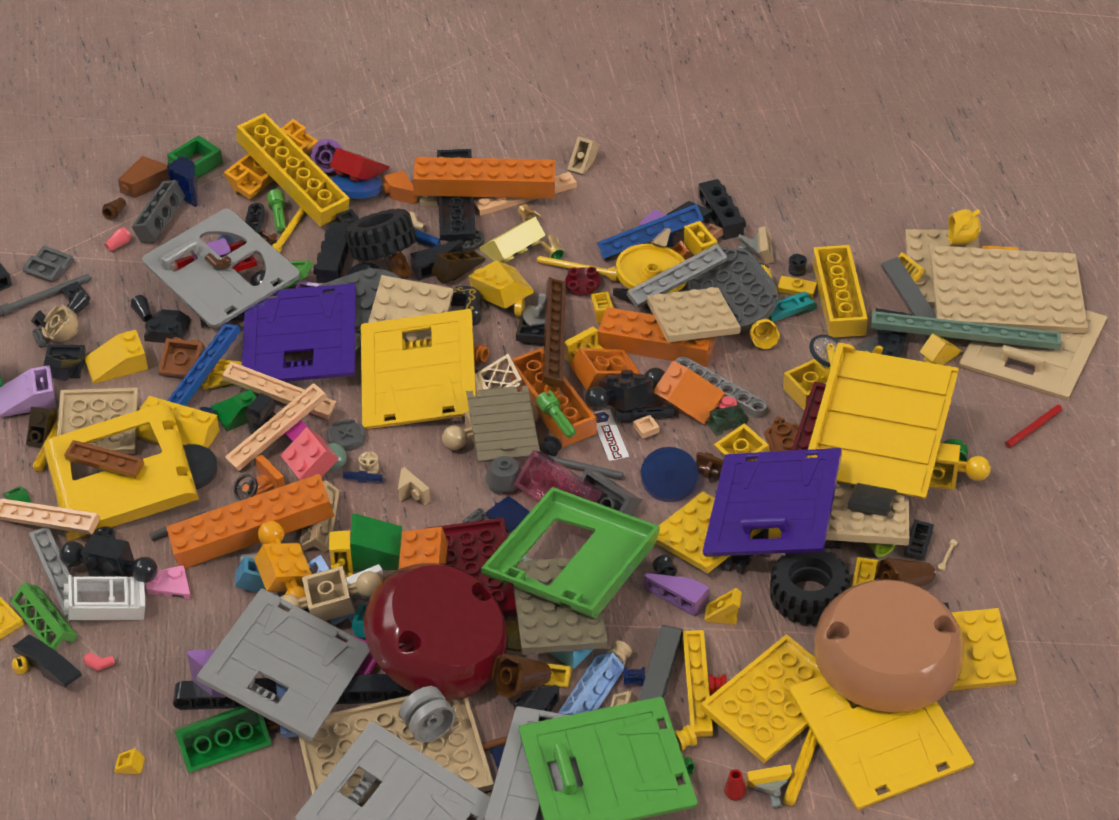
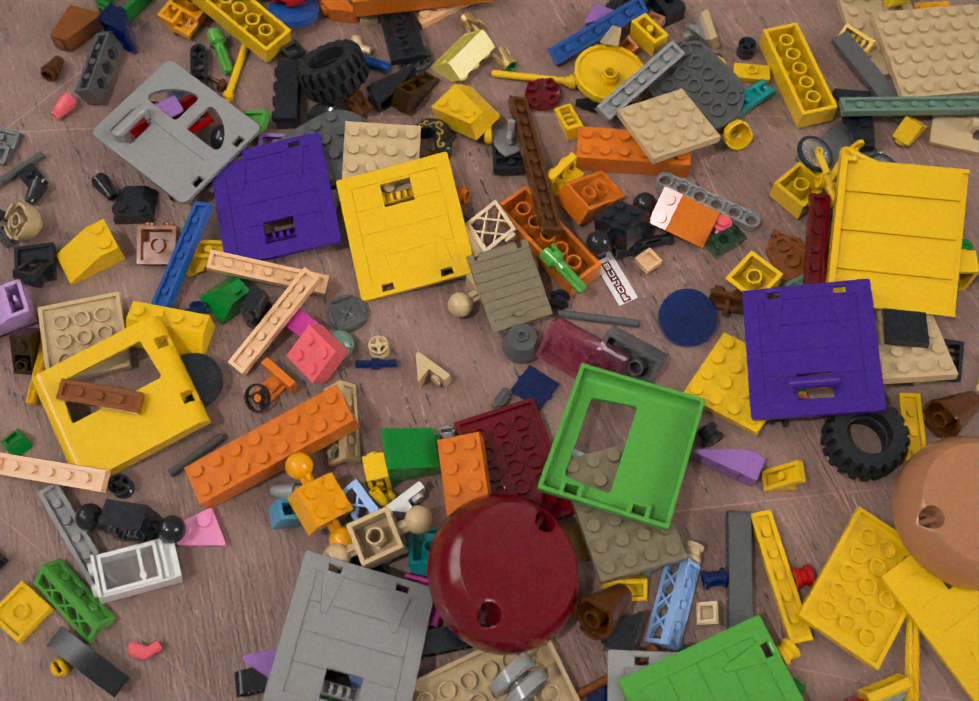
camera: 10 degrees left, 20 degrees up
(224, 263) = (178, 128): reddish brown arm -> none

